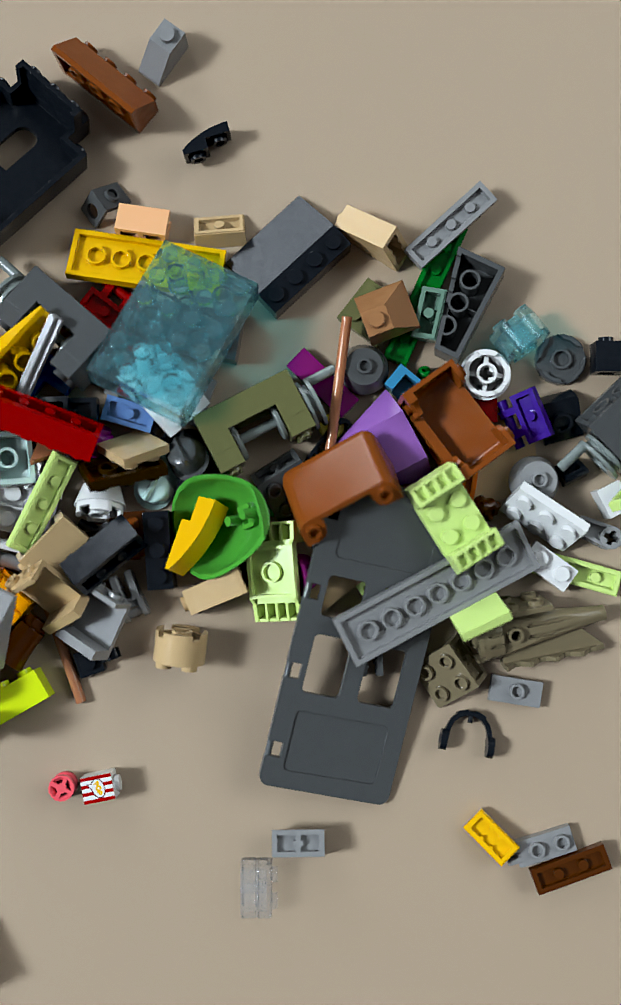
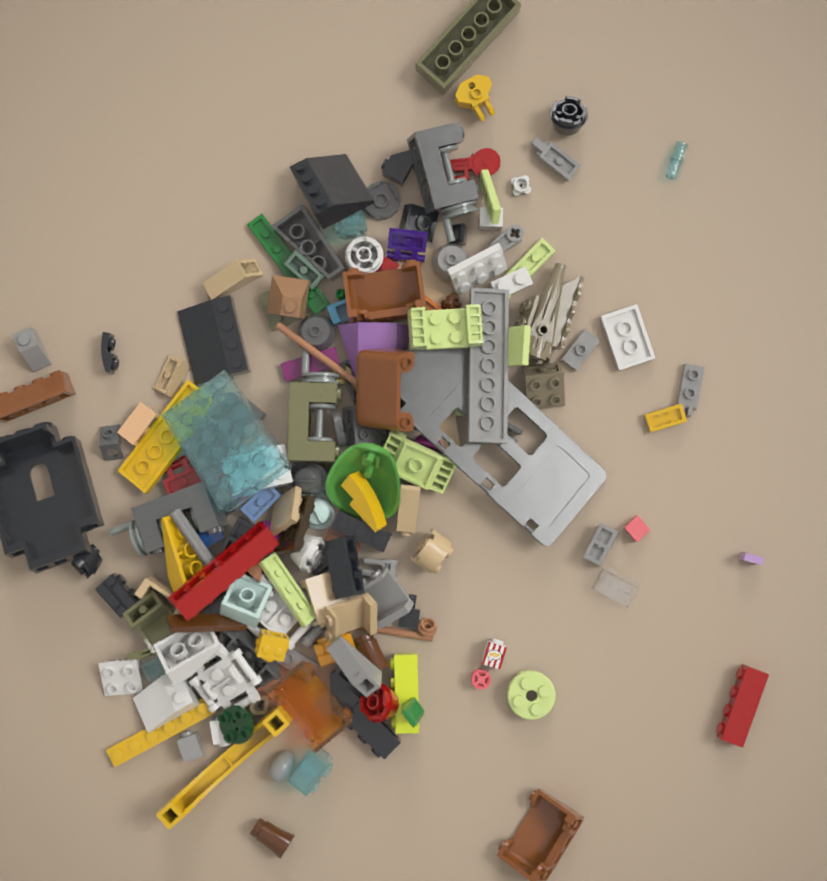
camera: 65 degrees left, 0 degrees up
(85, 840) = (524, 682): none -> yellowish green plate
(95, 689) = (427, 627): none -> nougat plate
(264, 457) = (337, 422): none -> dark grey tile
(340, 873) = (636, 528): none -> coral slope
(450, 225) = (253, 223): light grey plate -> none
(489, 741) = (603, 384): black piece -> none
(544, 291) = (331, 187): none -> black slope
(561, 739) = (627, 337): none -> white plate
(570, 868) = (713, 378): reddish brown plate -> none

